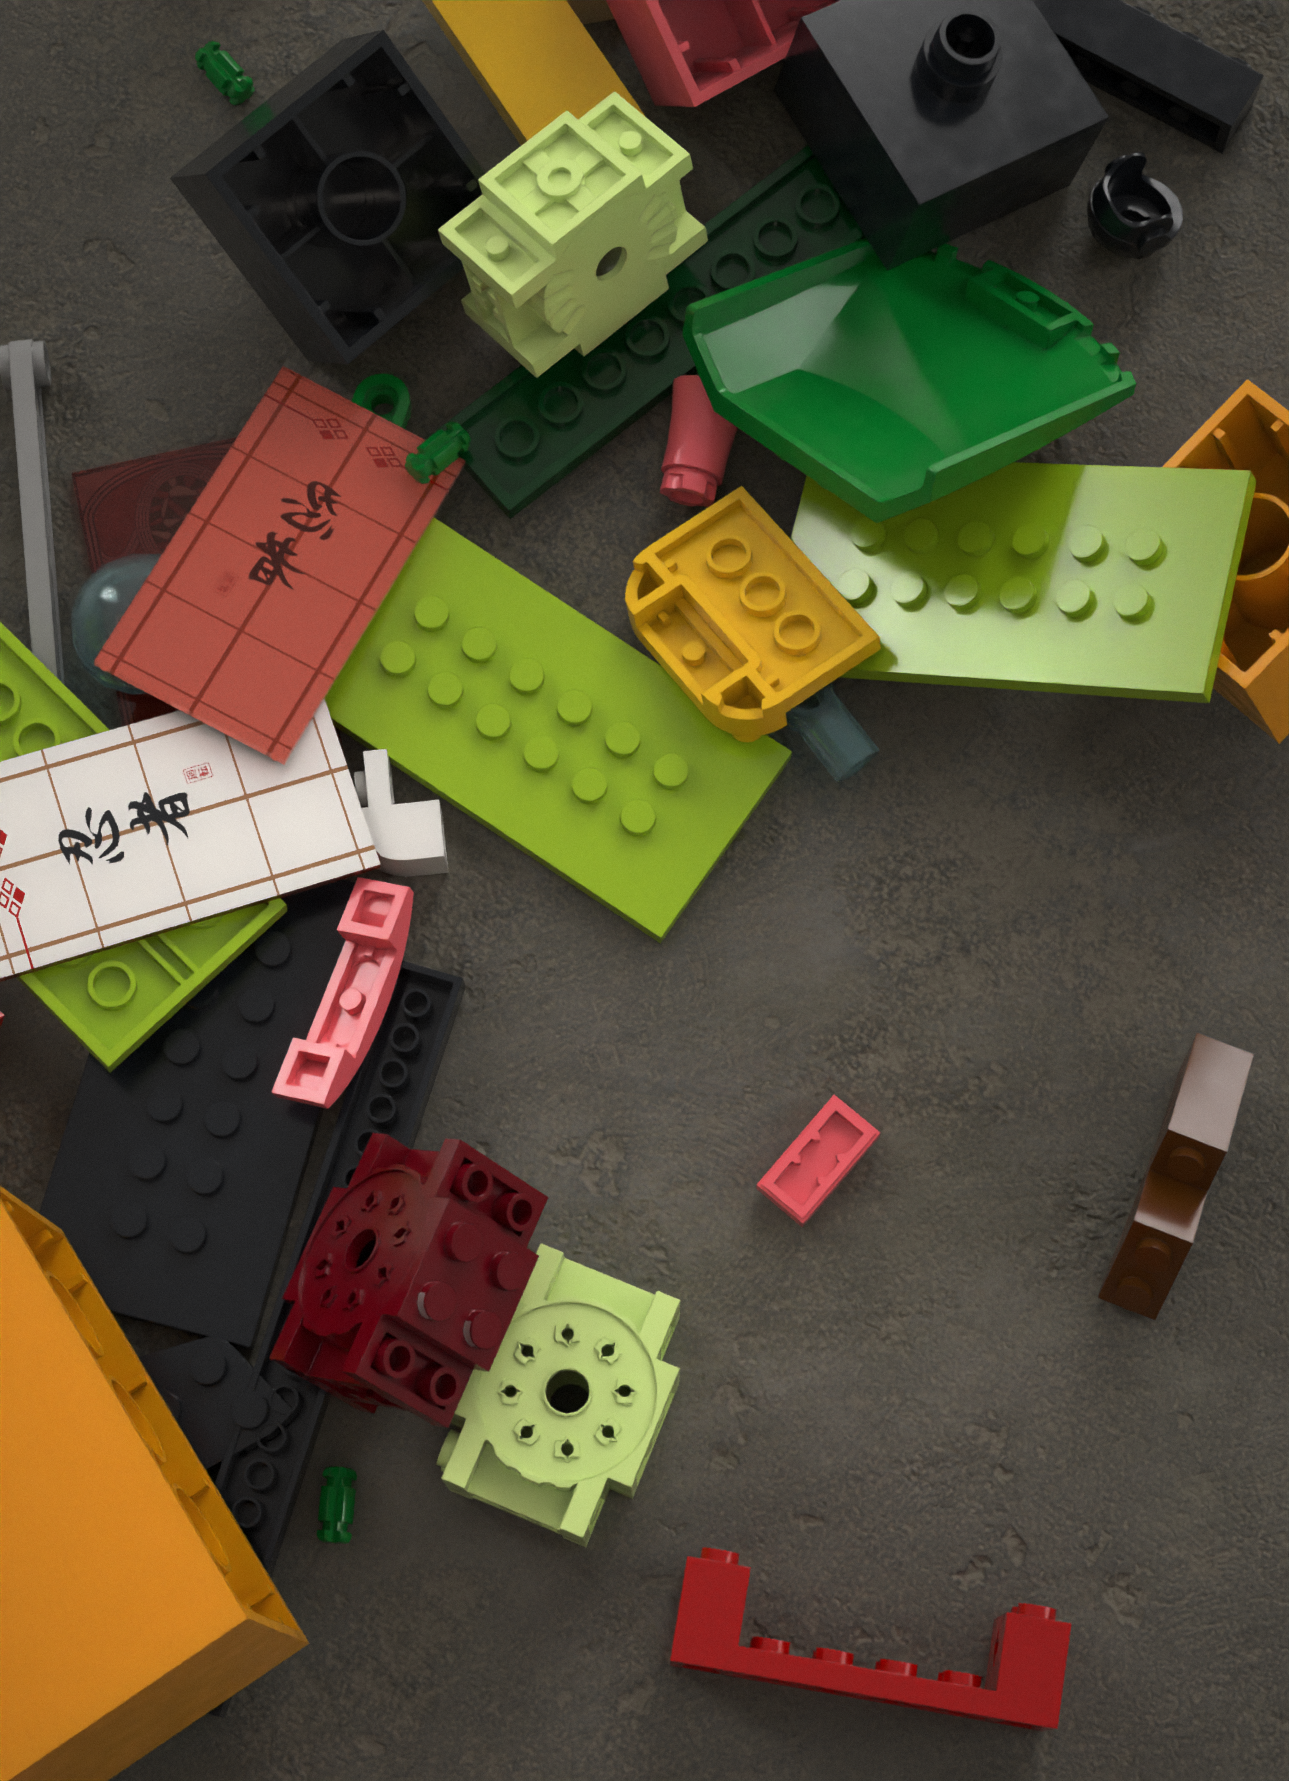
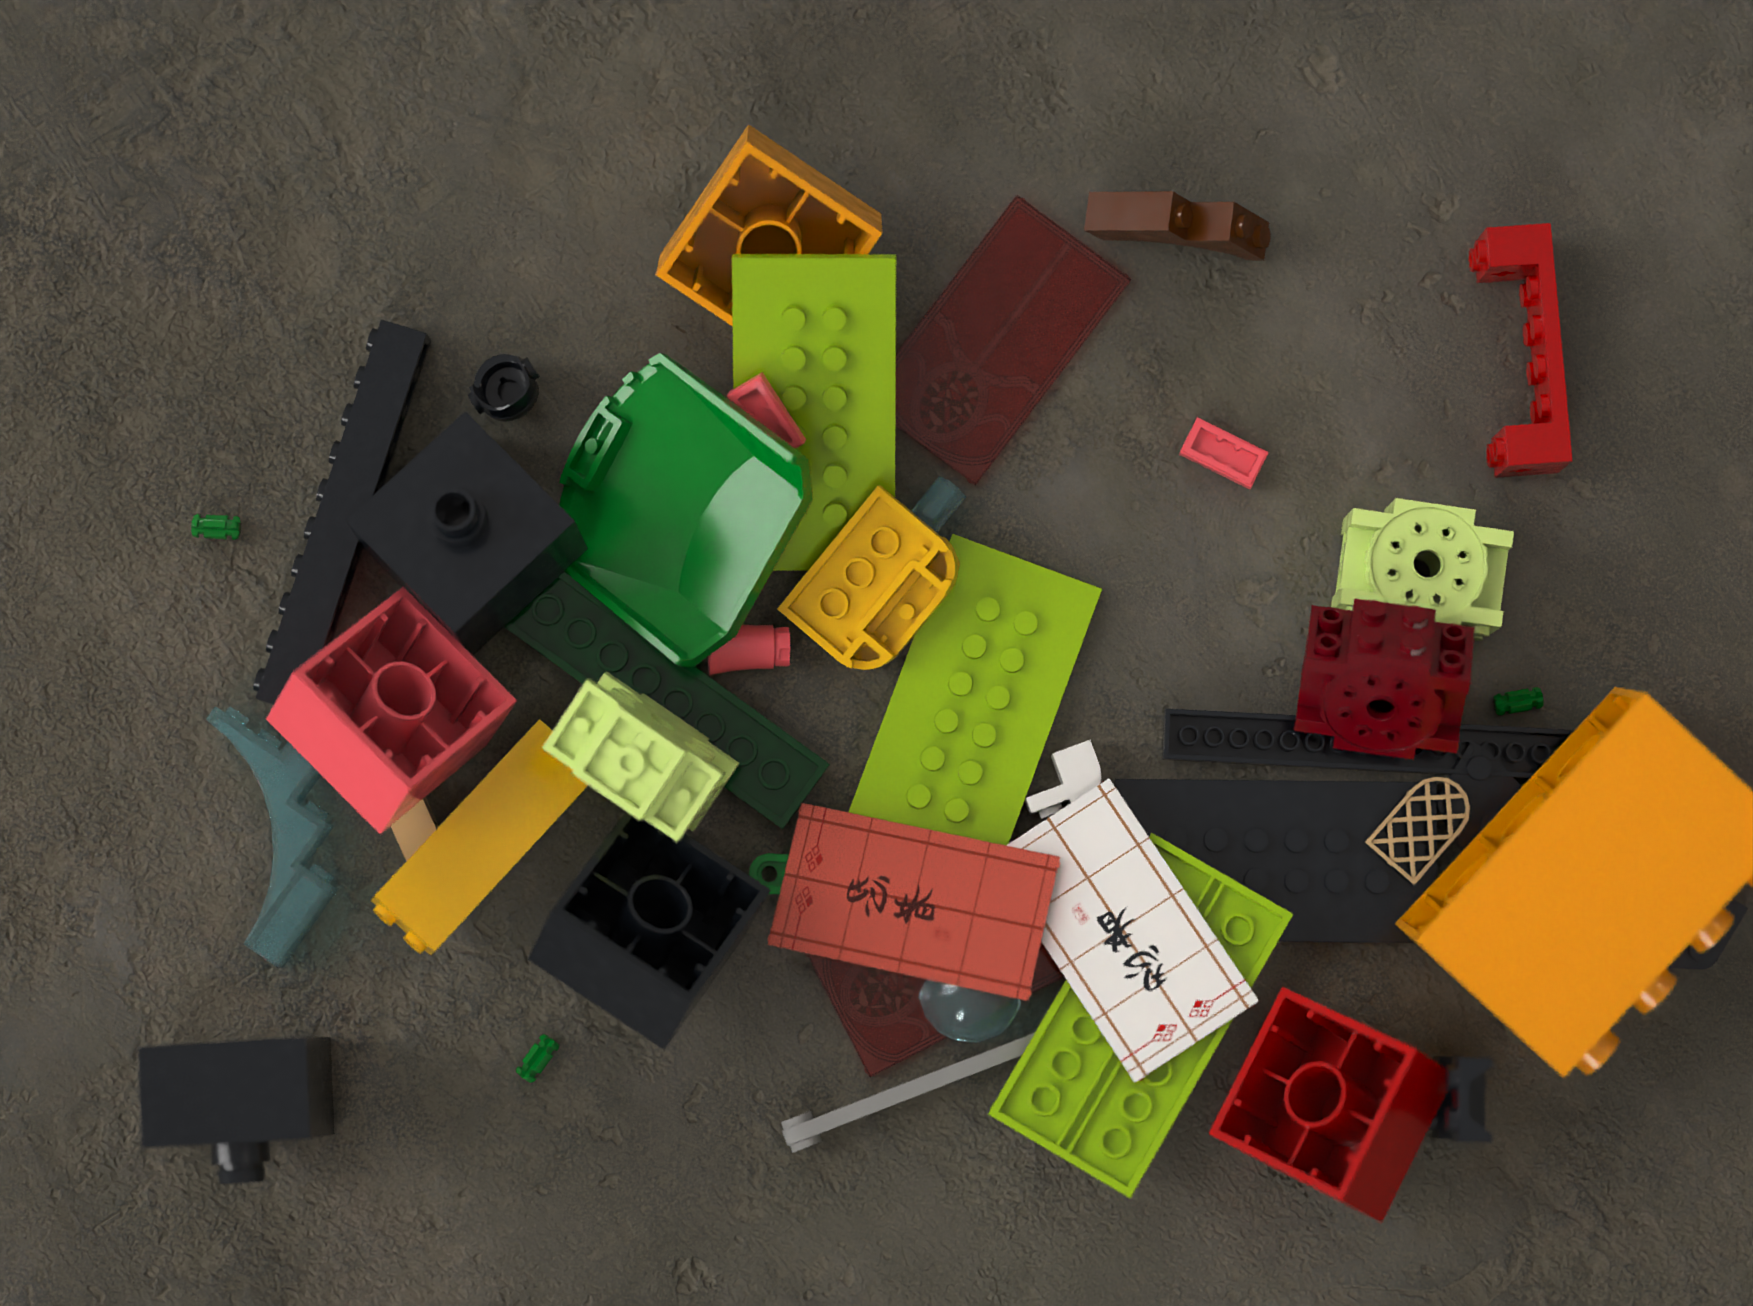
camera: 105 degrees left, 10 degrees up
(153, 1243) = (1449, 816): none -> tan window
(355, 998) = (1201, 774): coral slope -> none
(437, 452) = (805, 820): green piece -> none
(1010, 495) = (764, 405): none -> coral plate
(1063, 887) = (1000, 338): none -> clear red piece

